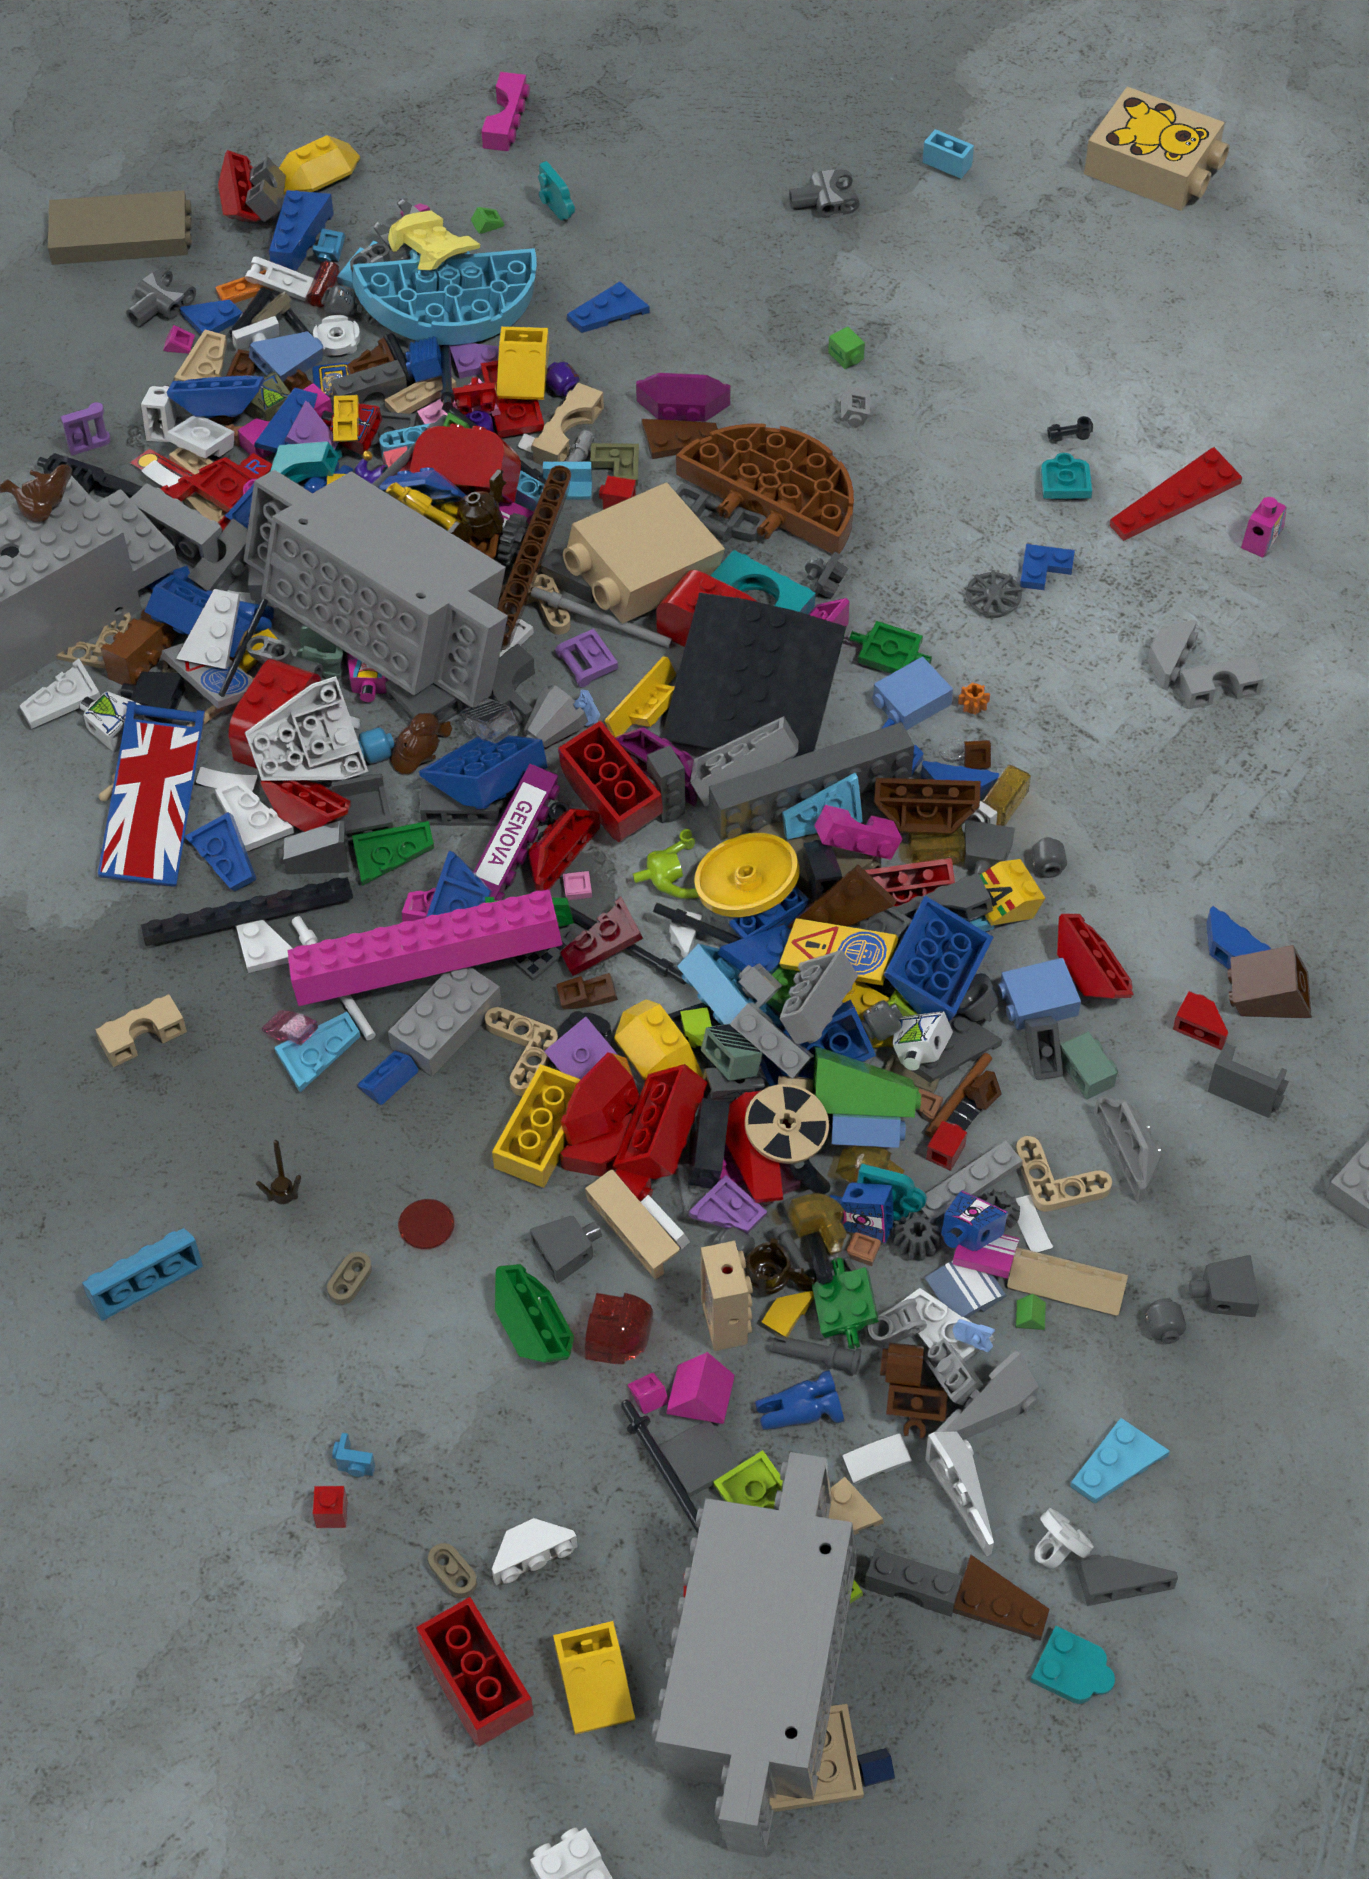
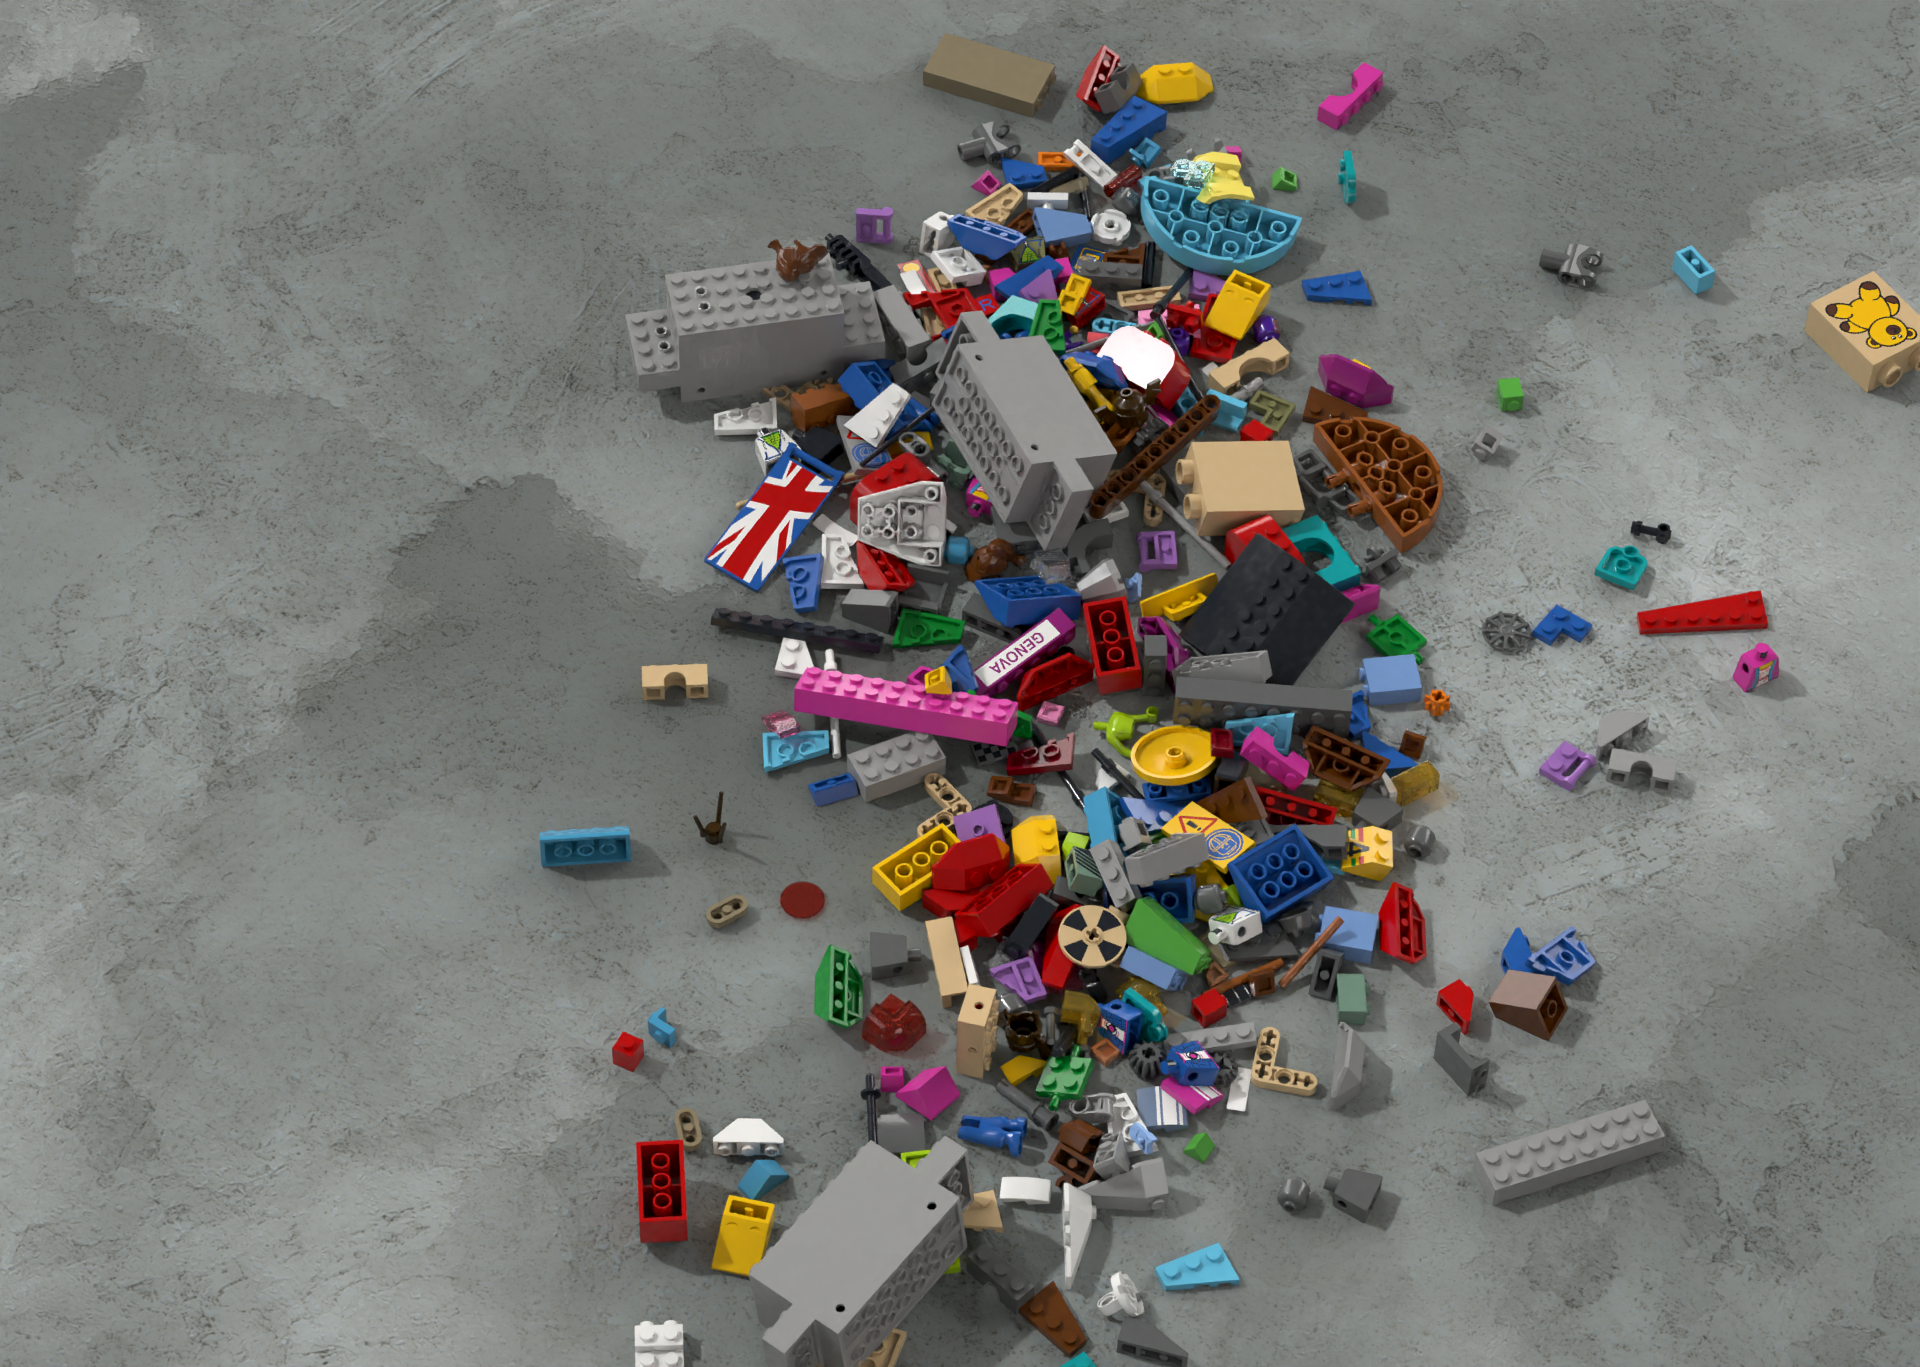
camera: 25 degrees right, 5 degrees down
(342, 458) = (1049, 324): none -> green wing
(406, 240) = (1195, 173): none -> clear light blue plate
(424, 359) = (1165, 272): blue brick -> none
(448, 904) = (938, 681): none -> yellow slope
(571, 1591) = (762, 1178): none -> dark azure slope
(793, 839) = (1221, 743): none -> dark red tile
(1018, 1032) = (1309, 954): none -> dark orange bar
(1067, 1281) = (1239, 1137): tan panel -> none
(1134, 709) = (1562, 761): none -> medium lavender plate
(1275, 920) = (1562, 958): none -> blue wing

